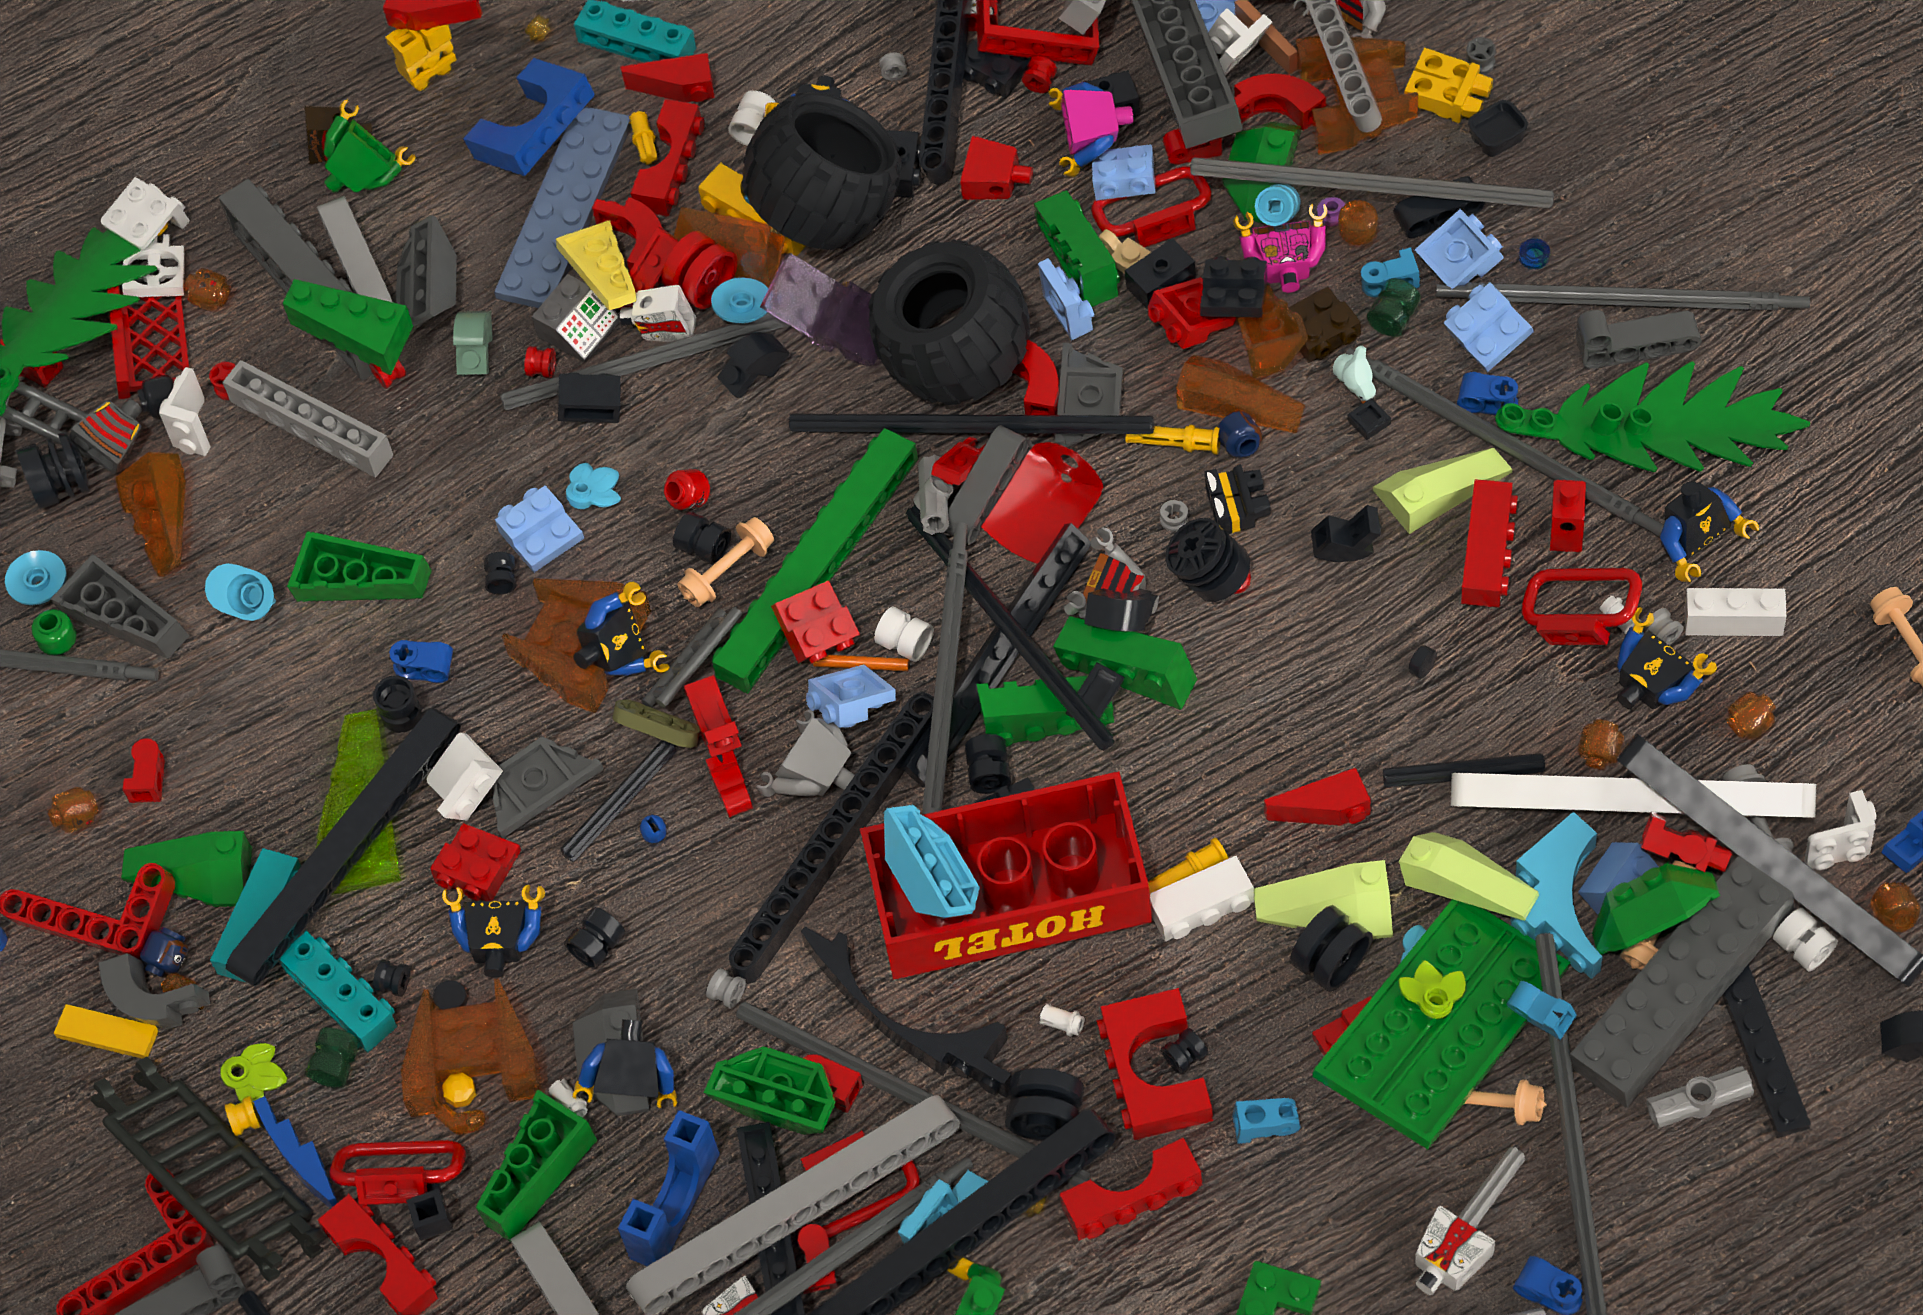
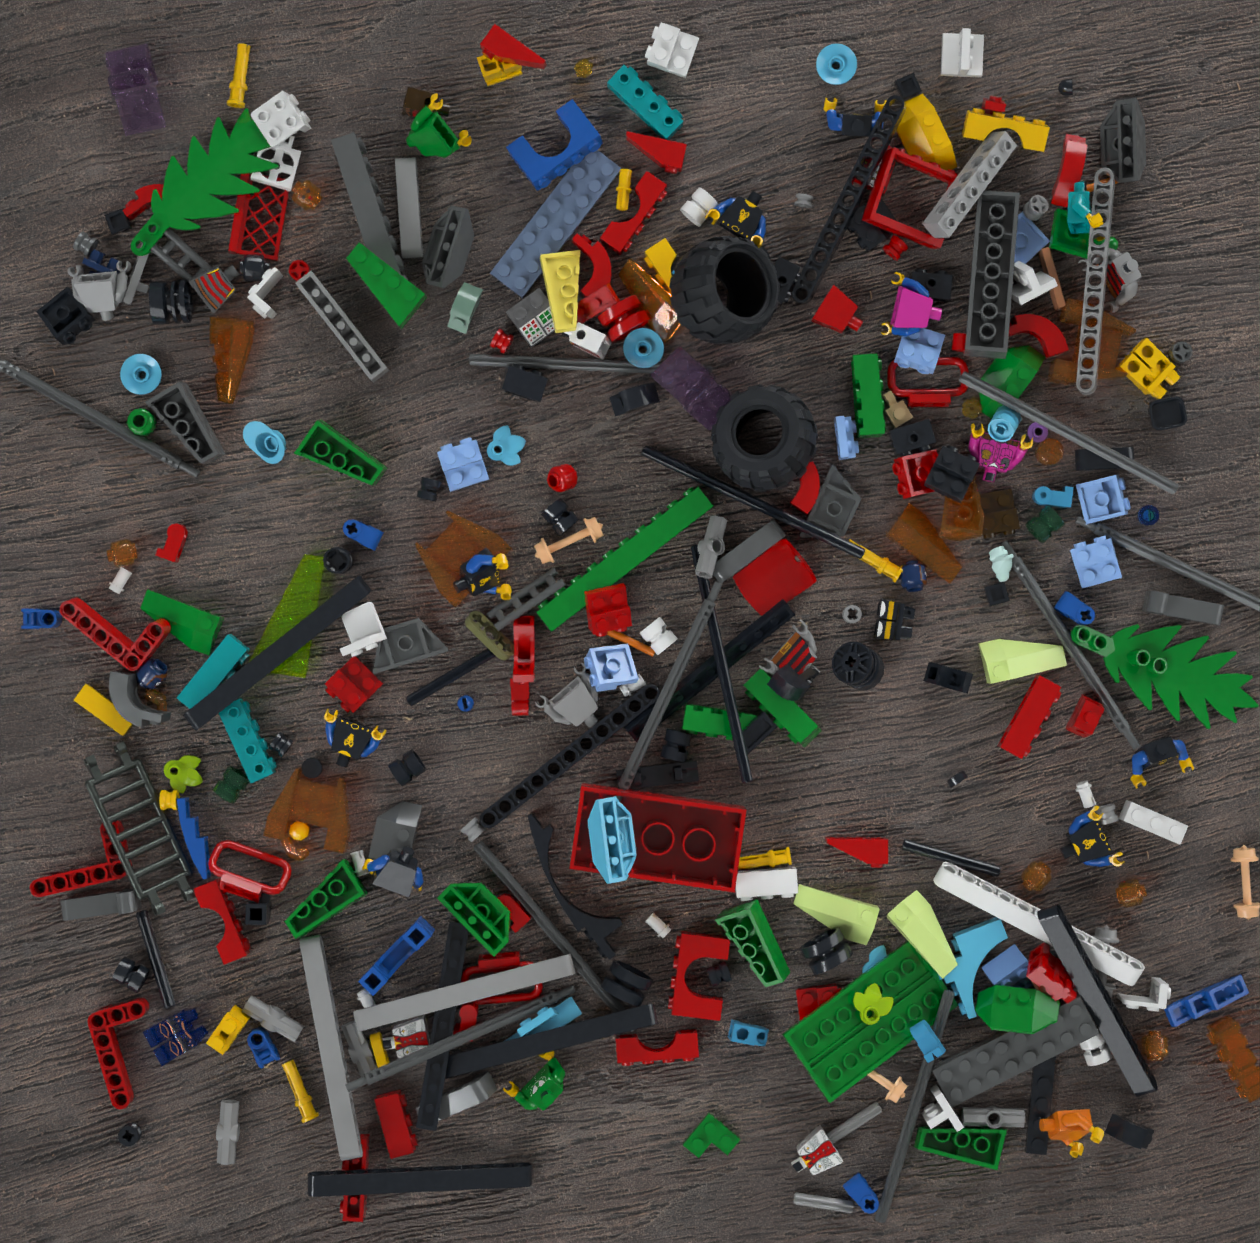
camera: 15 degrees right, 30 degrees up
(73, 202) = (238, 84): none -> yellow pin
(78, 855) = (120, 580): none -> white pin
(888, 715) = (627, 689): none -> white pin
(957, 462) = (736, 532): red hinge -> none
(1213, 974) = (755, 940): none -> green wedge
(1226, 222) = (971, 413): none -> clear yellow plate
(1580, 628) = (1055, 796): red bar -> none
(1615, 1105) = (938, 1112): none -> white bracket
(1670, 1149) = (971, 1144): none -> green wedge
(1819, 1055) = (1070, 1127): none -> orange torso

